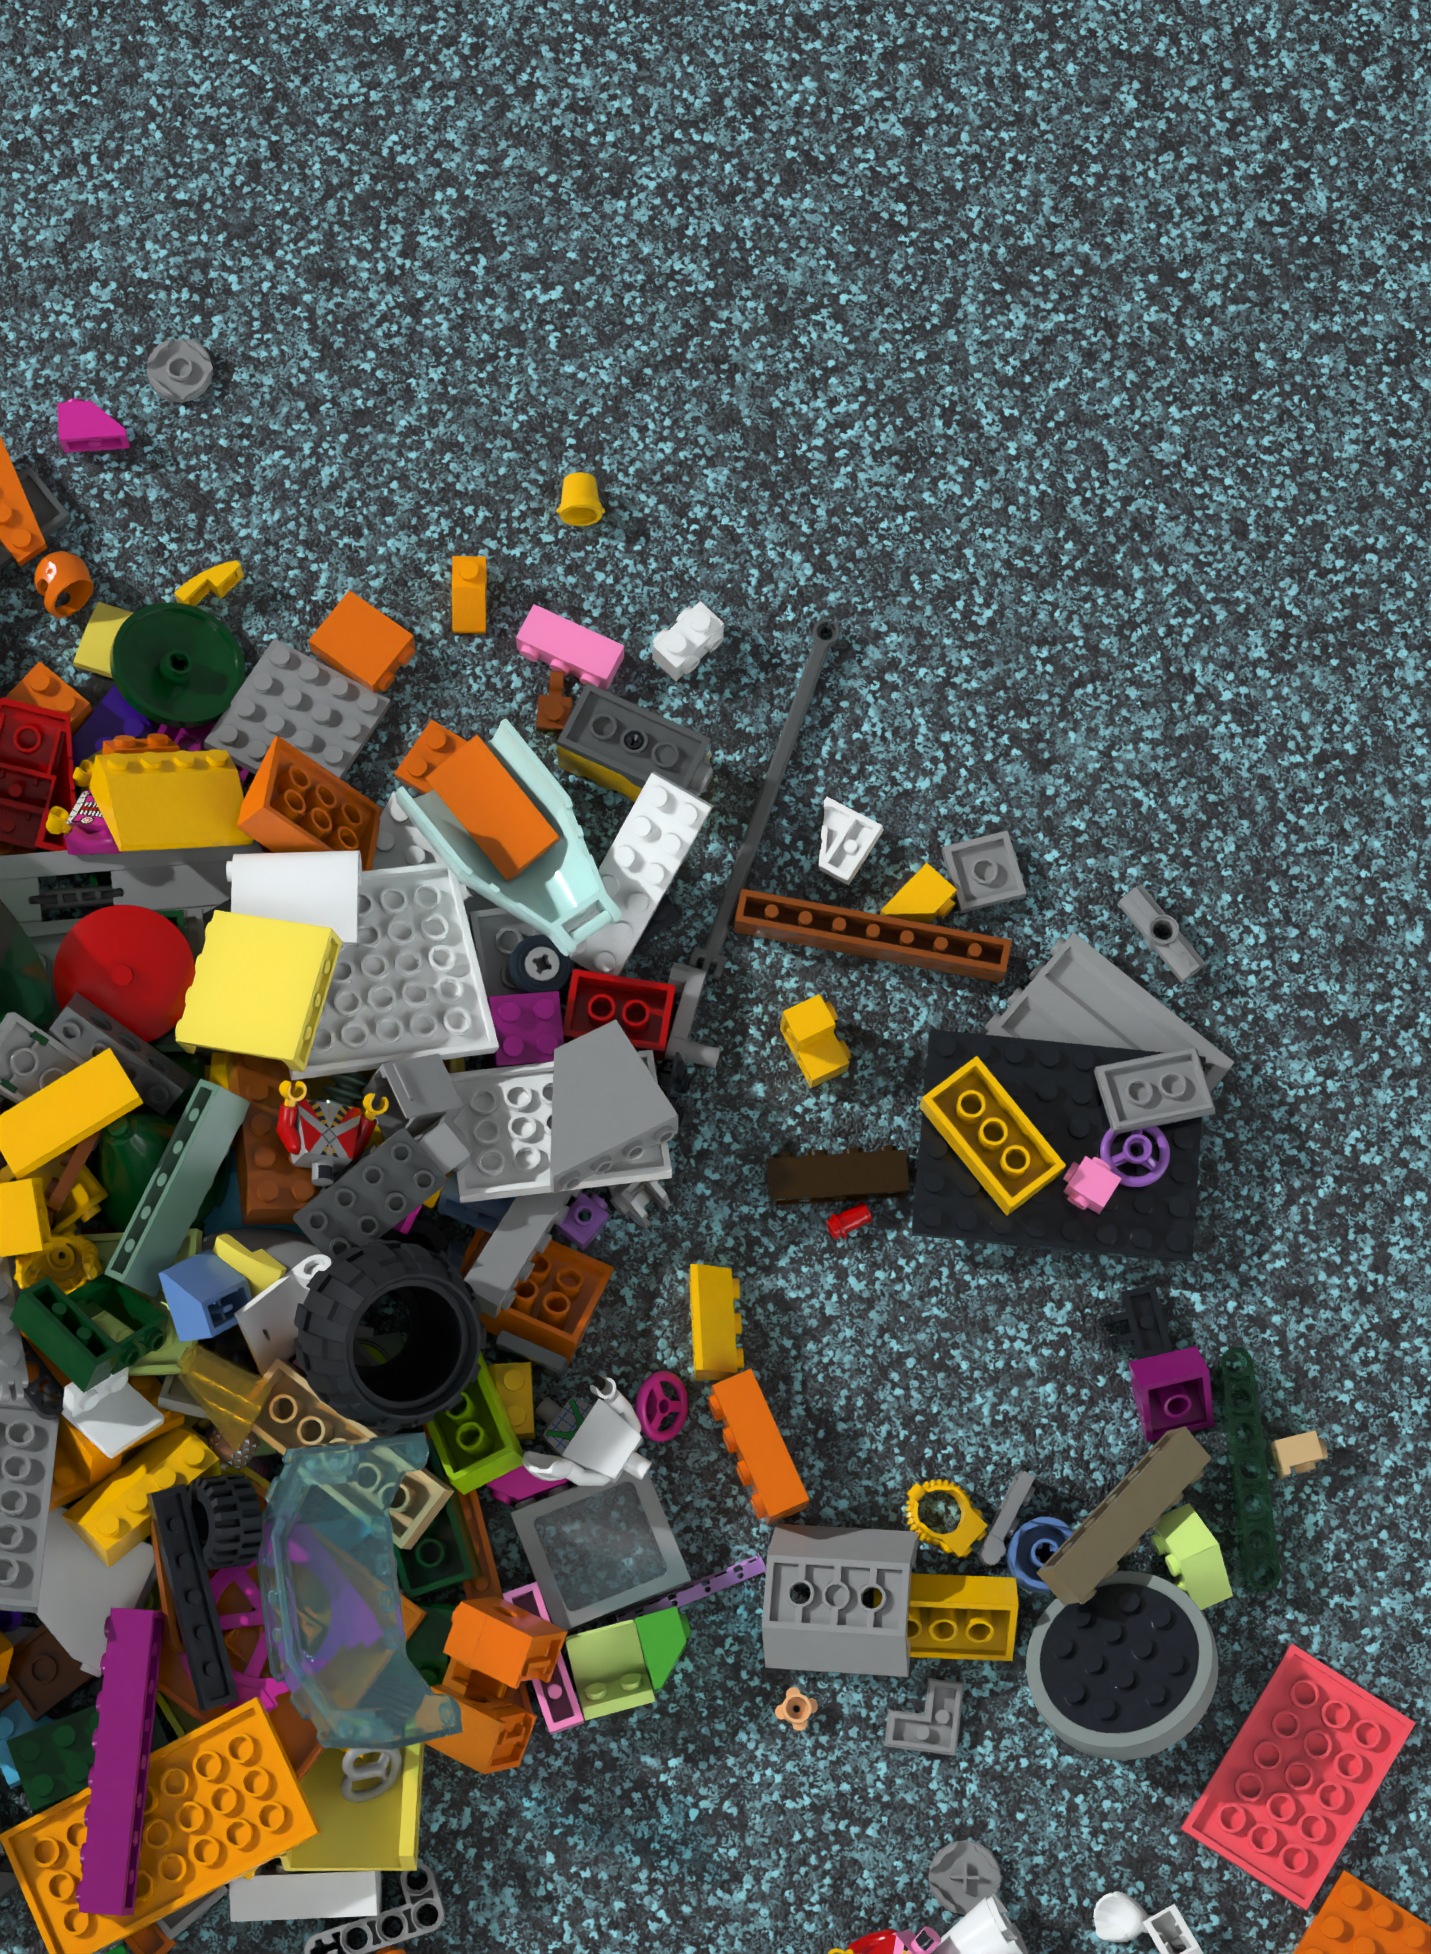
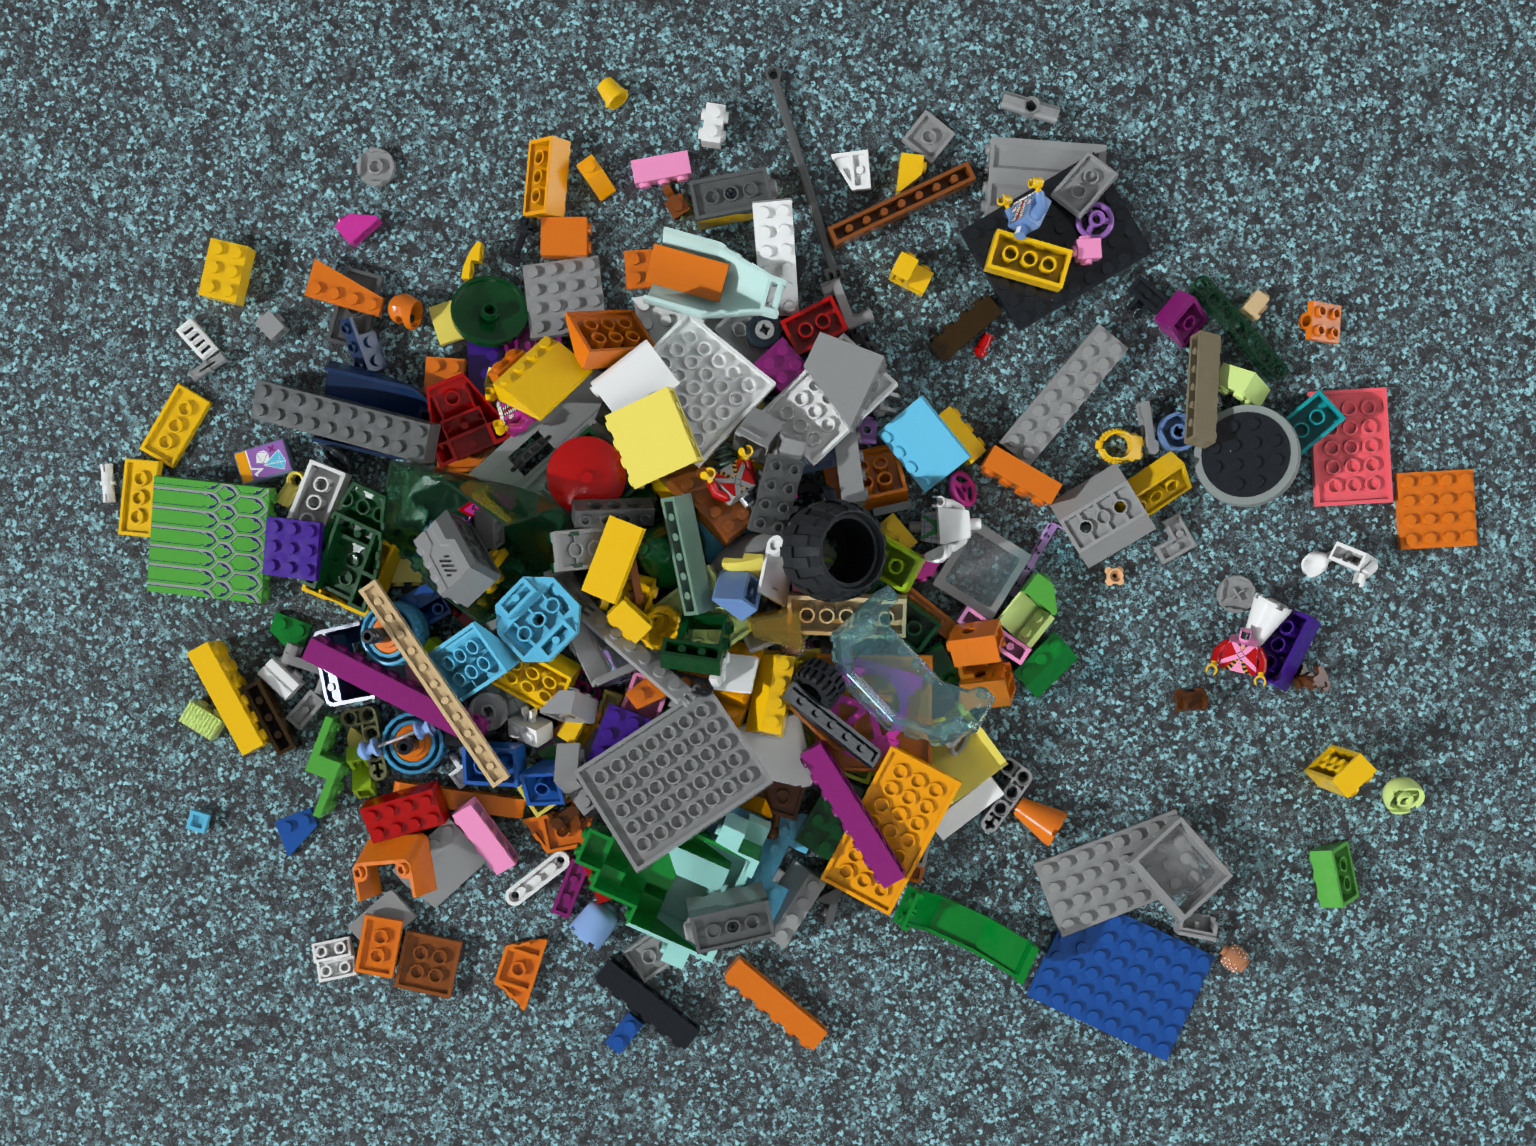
camera: 30 degrees left, 15 degrees up
(269, 621) = (525, 229): none -> black bar
(401, 547) = (546, 177): none -> light orange slope
(590, 1766) = (1044, 664): none -> green slope
(649, 1294) = (924, 444): none -> medium azure slope
(910, 1377) = (1062, 395): none -> light grey brick
(1039, 1064) = (1027, 212): none -> medium blue torso
(1257, 1688) = (1314, 420): none -> teal brick
(1382, 1552) = (1321, 322): none -> orange plate

